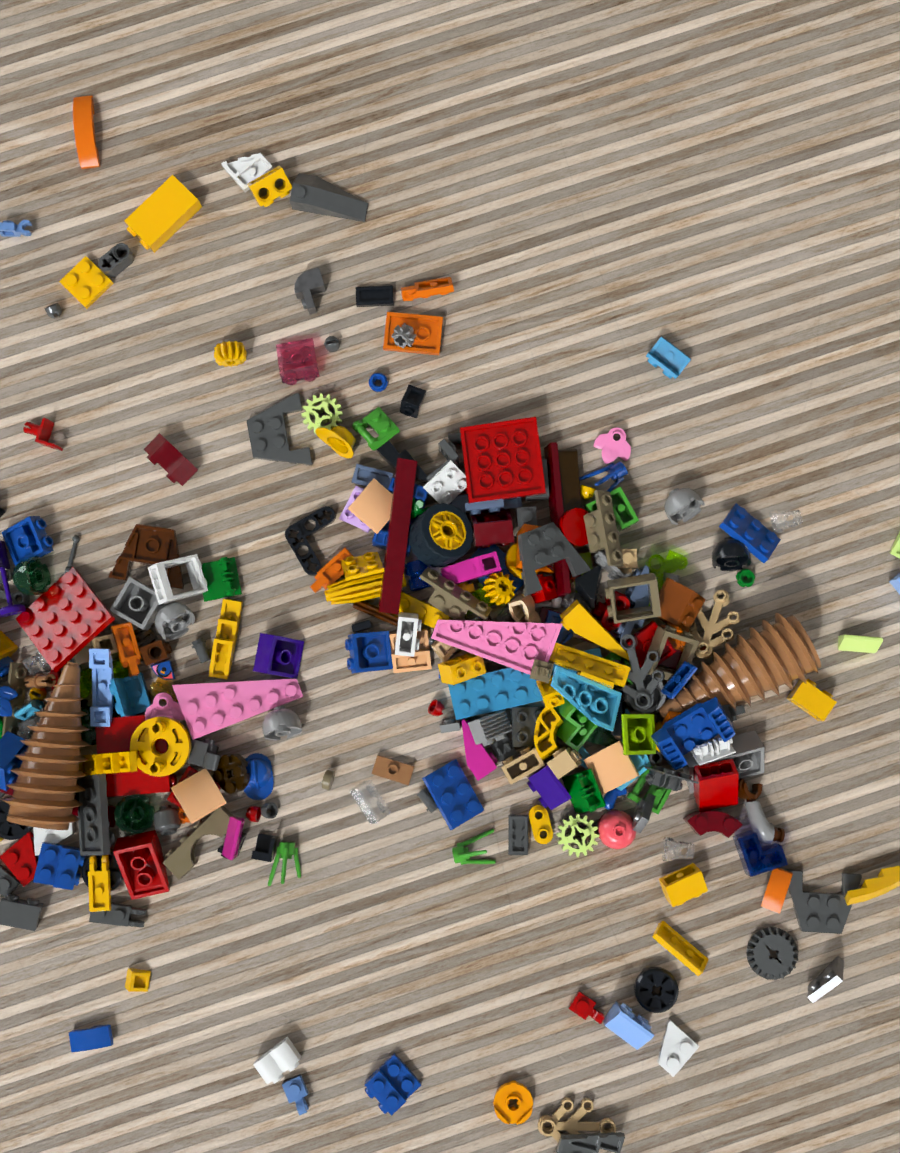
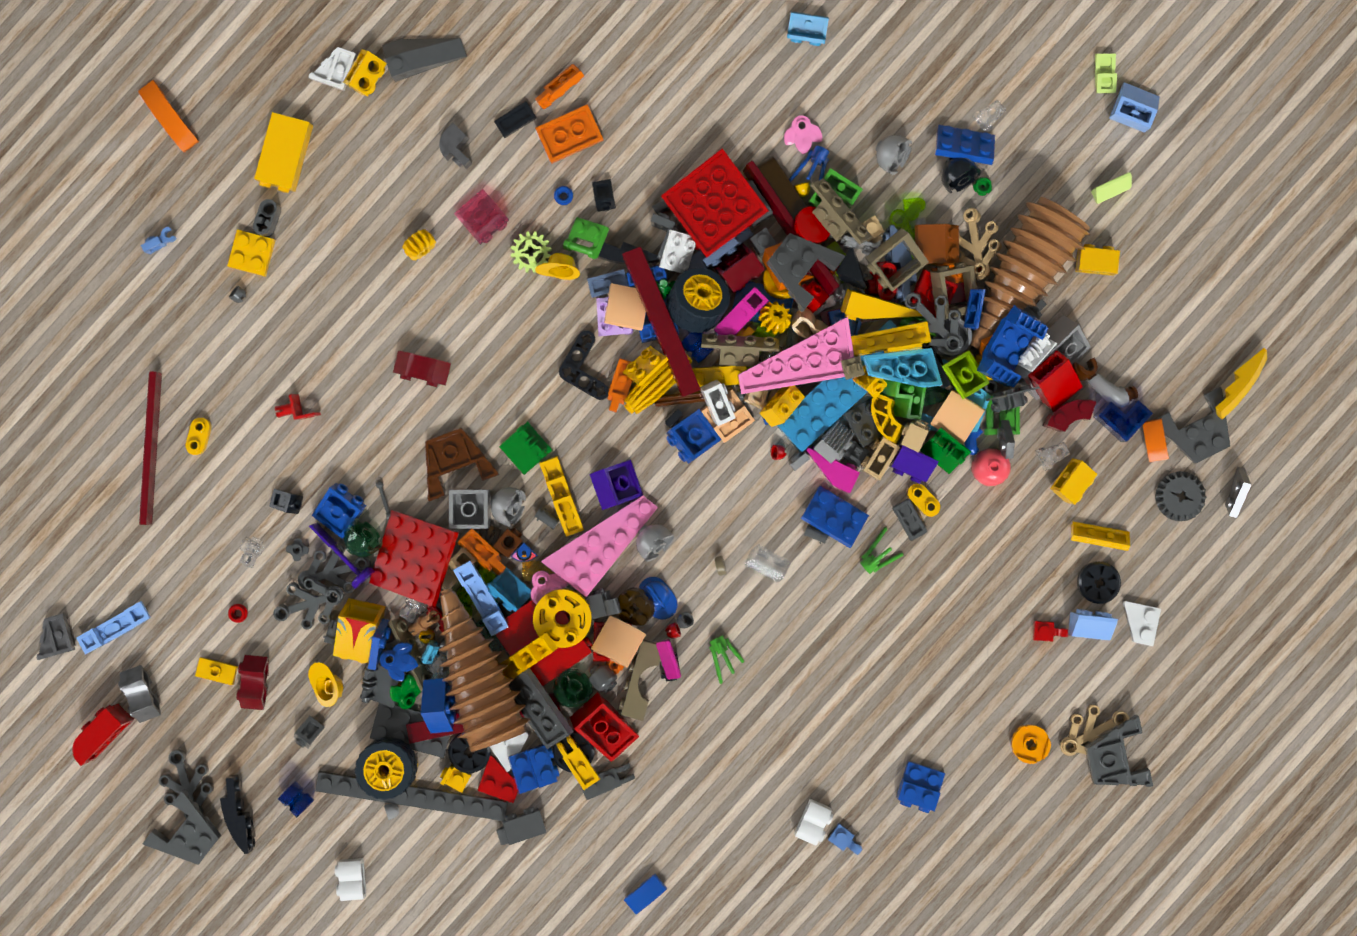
camera: 30 degrees left, 5 degrees up
(137, 980) = (655, 825): yellow slope -> none
(161, 583) = (481, 479): white window -> none
(265, 847) = (699, 653): black panel -> none
(270, 437) = (495, 297): dark grey wing -> none
(333, 347) = (505, 187): dark grey hinge -> none
(393, 770) = (771, 526): medium nougat plate -> none
(403, 335) = (564, 141): light grey gear -> none
(586, 831) = (970, 498): yellowish green gear -> none

